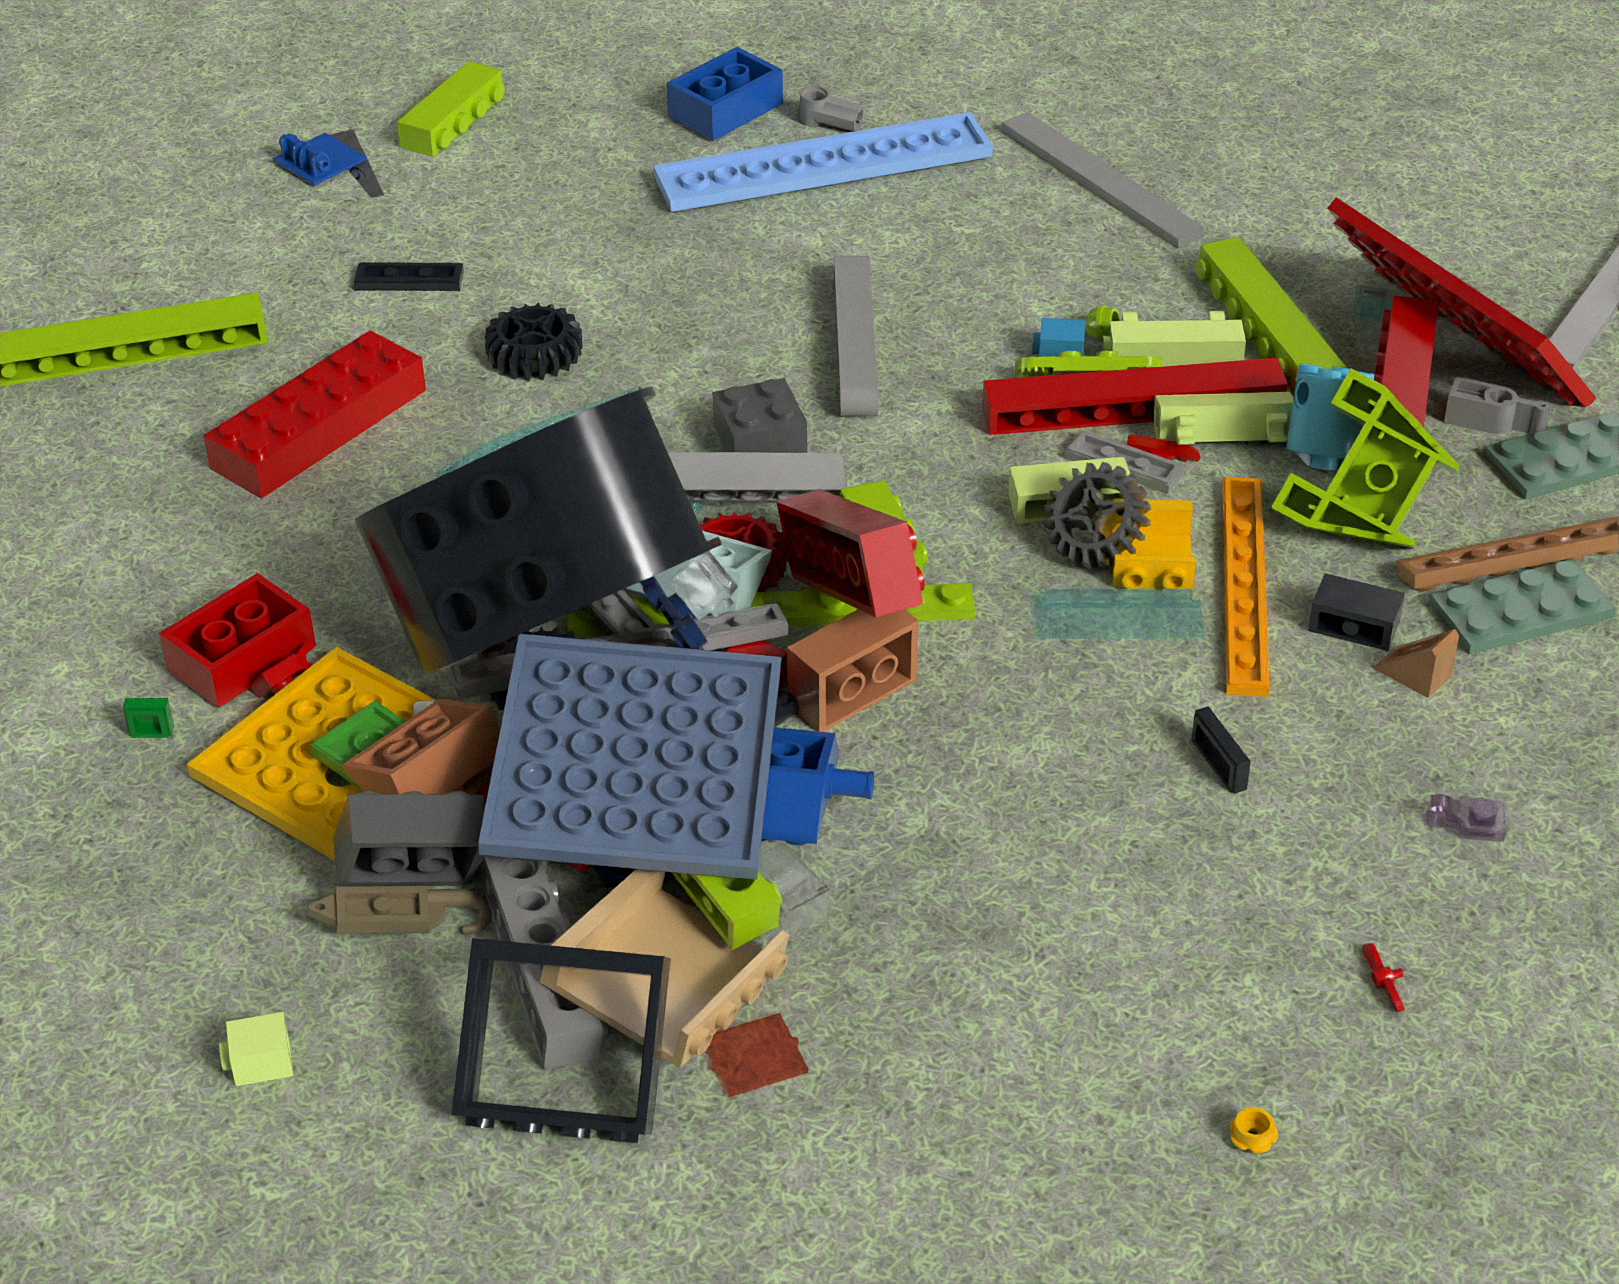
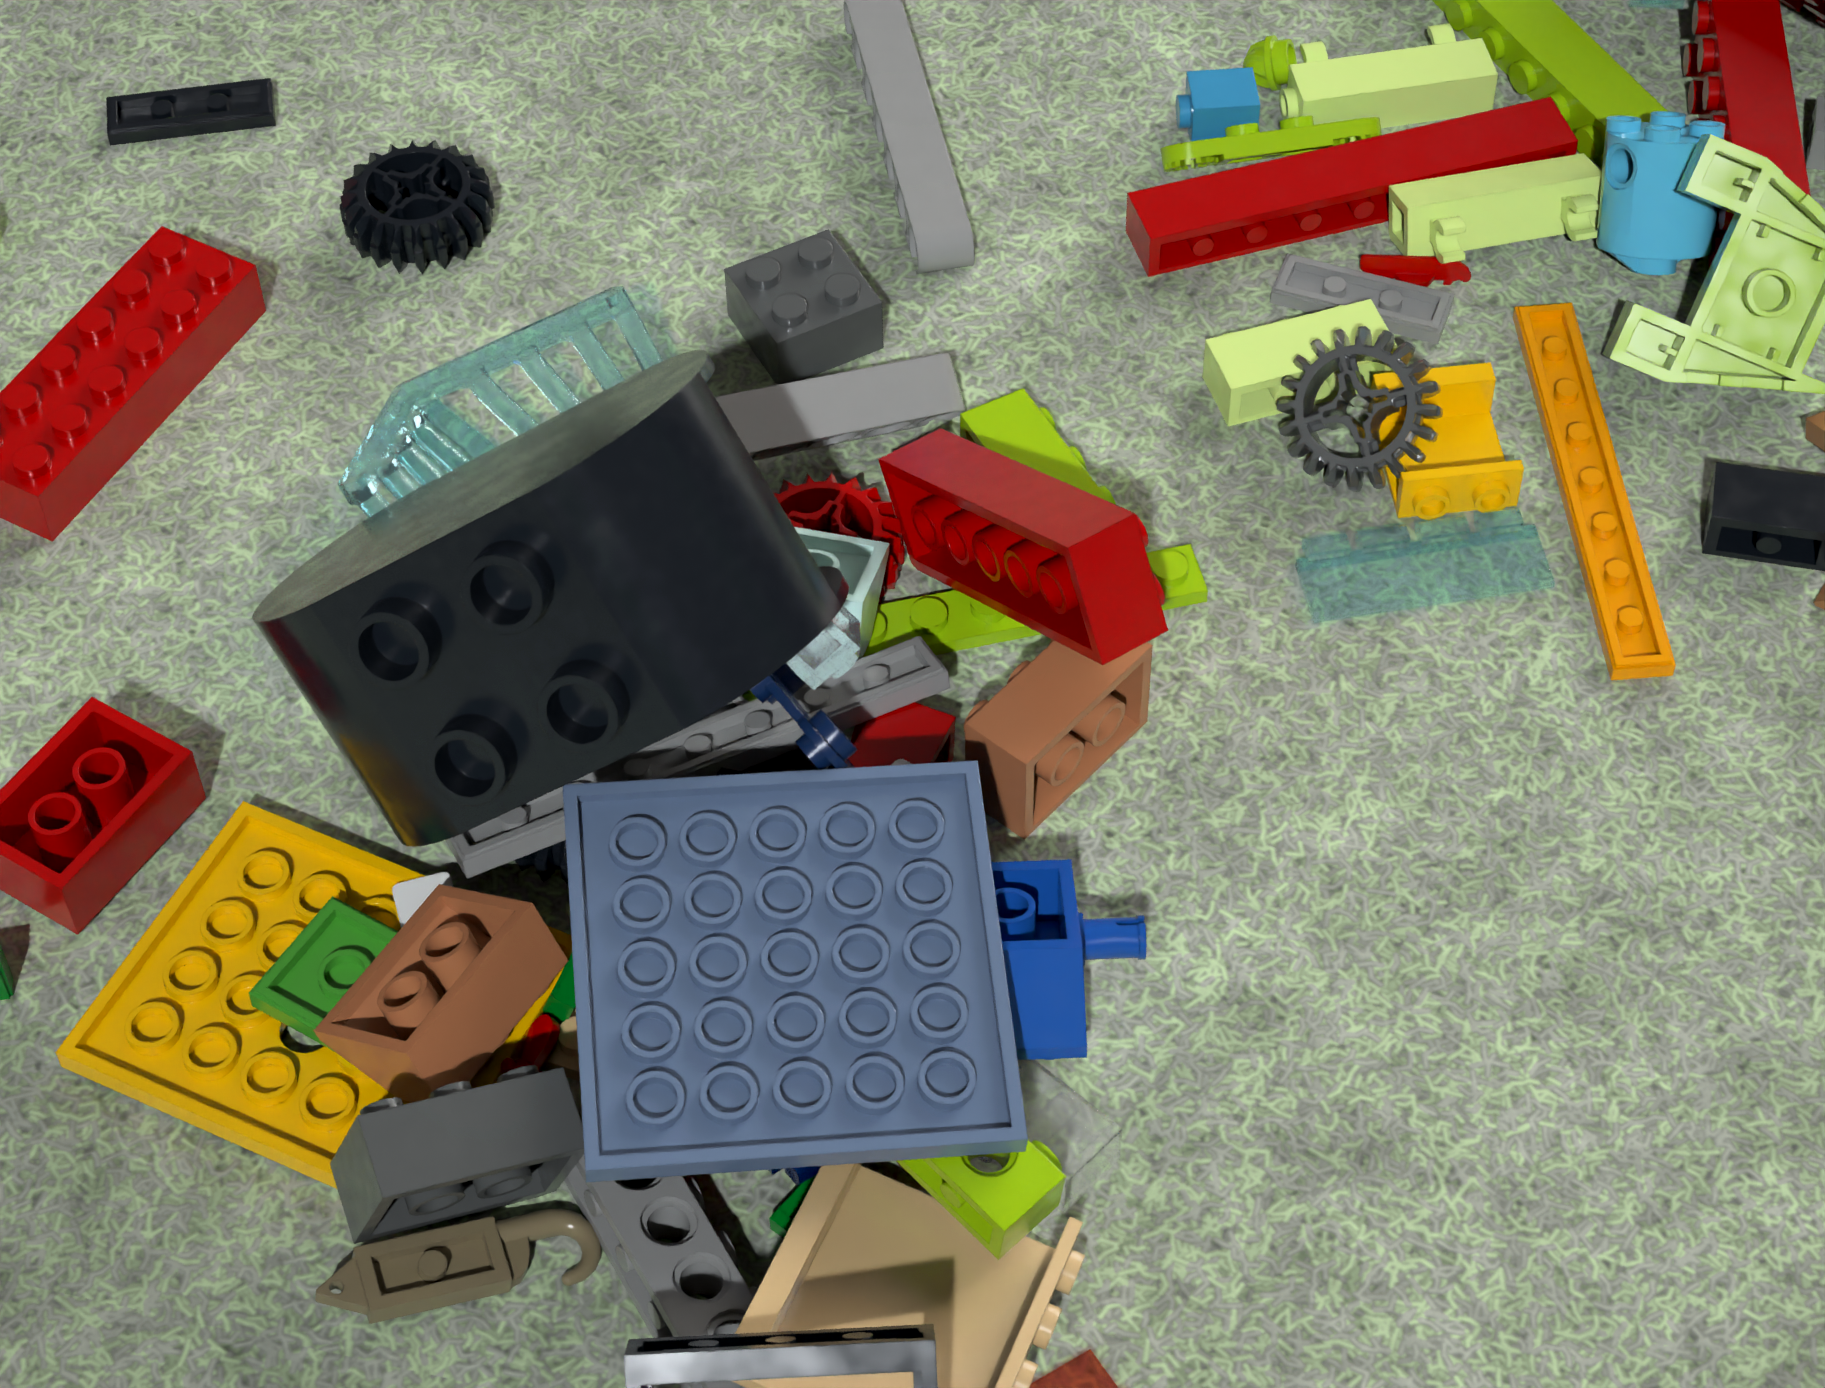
camera: 10 degrees left, 10 degrees up
(282, 673) = (166, 866): red plate -> none
(1220, 750) = (1635, 786): black tile -> none

